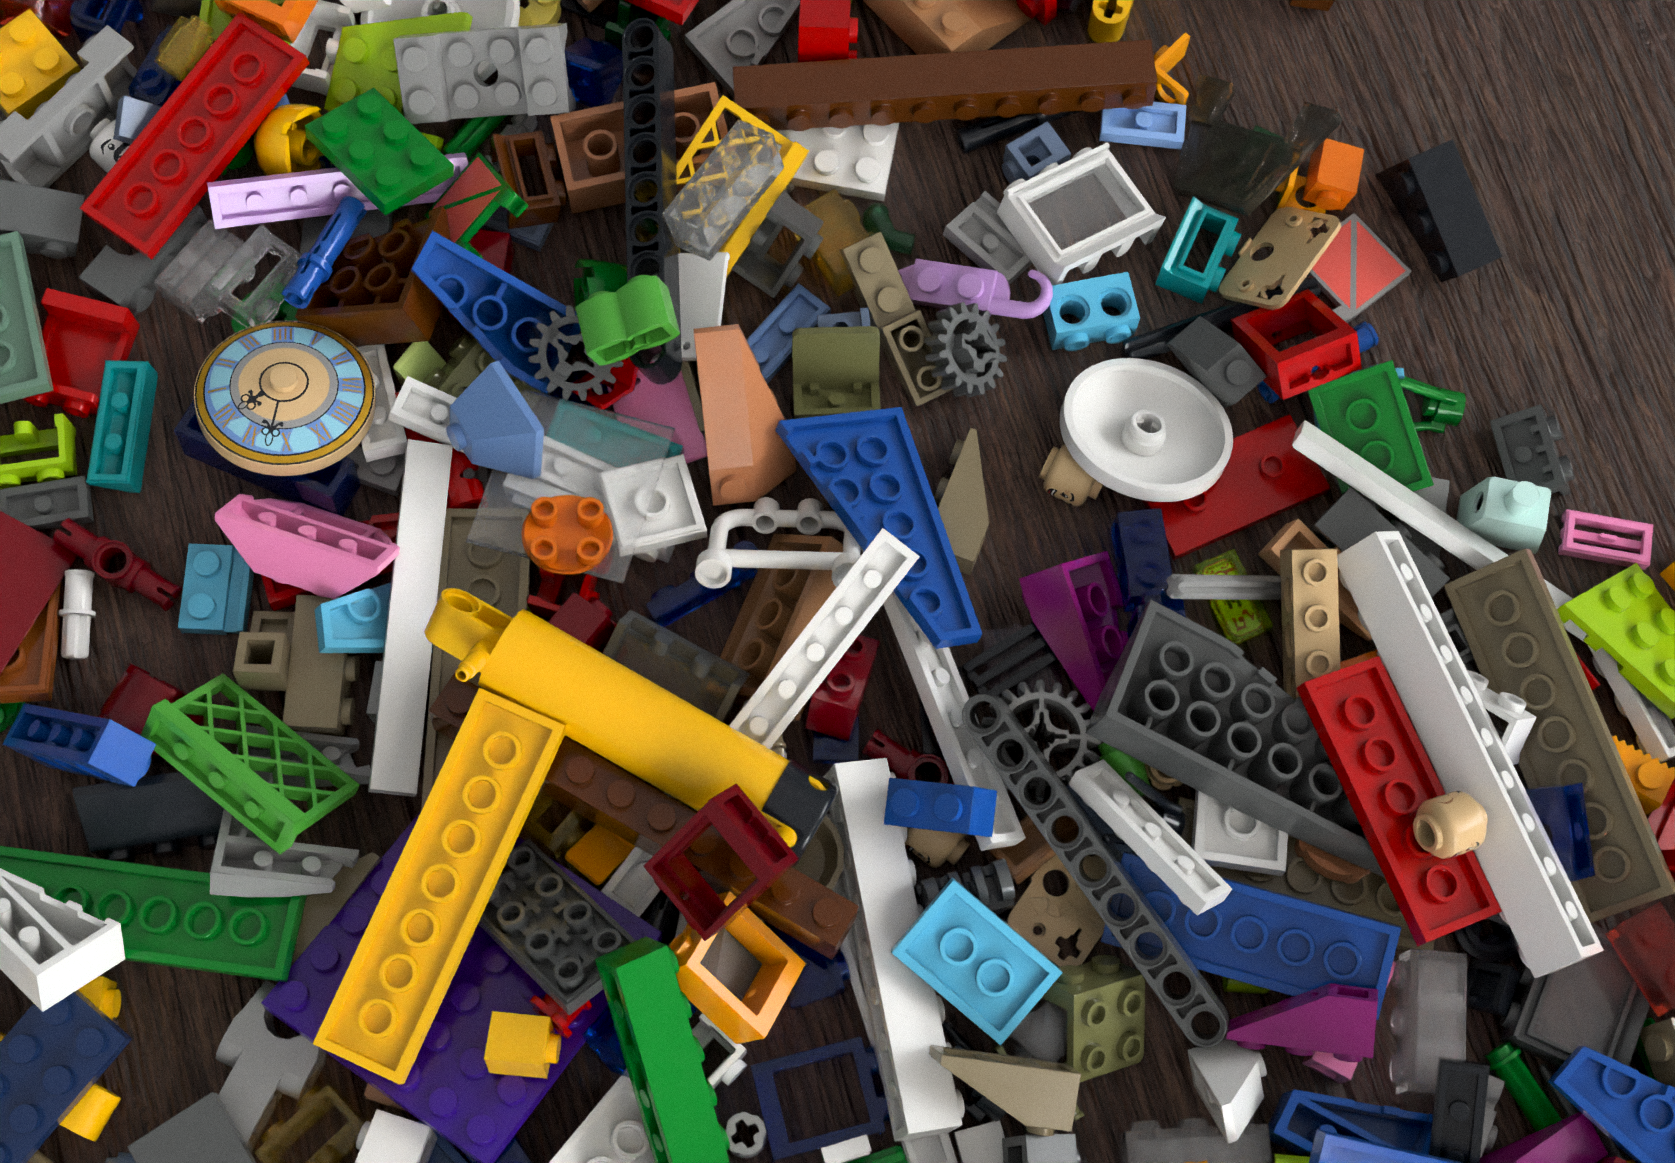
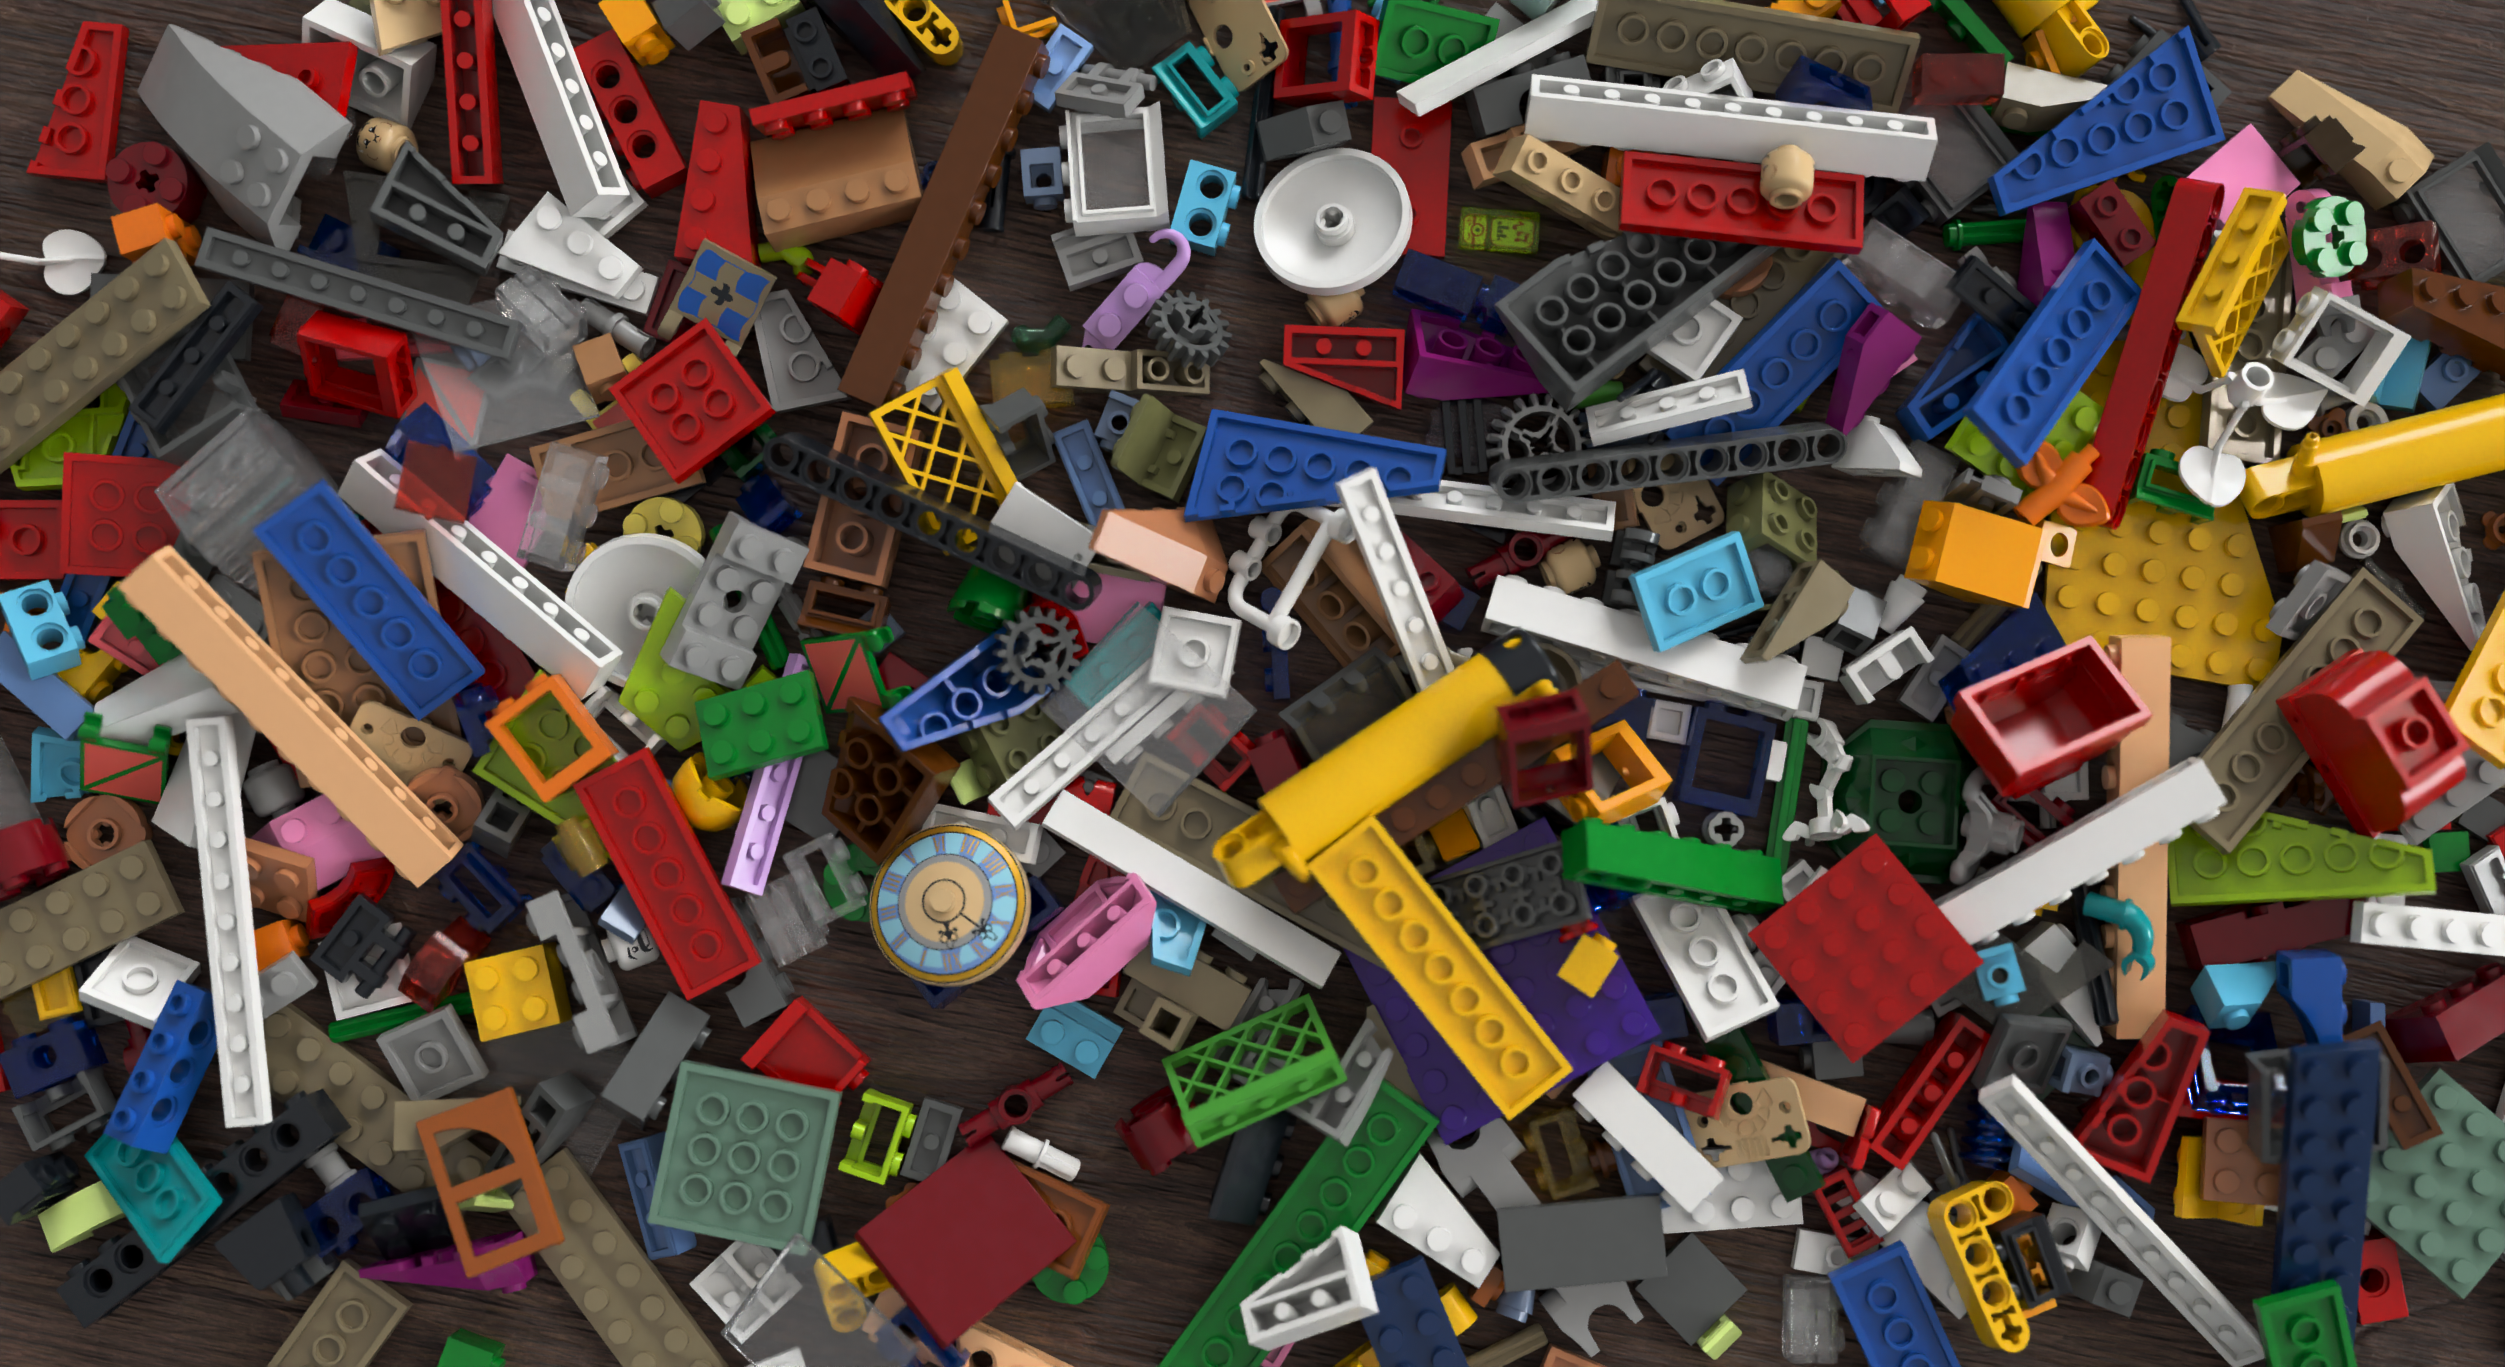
camera: 65 degrees left, 15 degrees up
(80, 744) = (1172, 1197): blue brick -> none
(122, 425) = (892, 1048): teal slope -> none
(127, 1131) = (1490, 1288): none -> dark orange plate
(177, 1043) = (1434, 1221): none -> white wedge
(317, 263) = (843, 826): blue pin -> none
(497, 425) = (1077, 746): medium blue slope -> none
(567, 534) = (1196, 734): orange dish -> none
(627, 320) = (1046, 596): bright green brick -> none
(723, 190) = (964, 457): clear brick -> none
(830, 1020) = (1669, 722): none -> white tile
(940, 807) = (1567, 555): blue brick -> none
(1023, 511) = (1350, 358): none -> red wedge
(1147, 168) = (1105, 90): none -> light grey plate
(1224, 587) = (1503, 235): light grey axle -> none

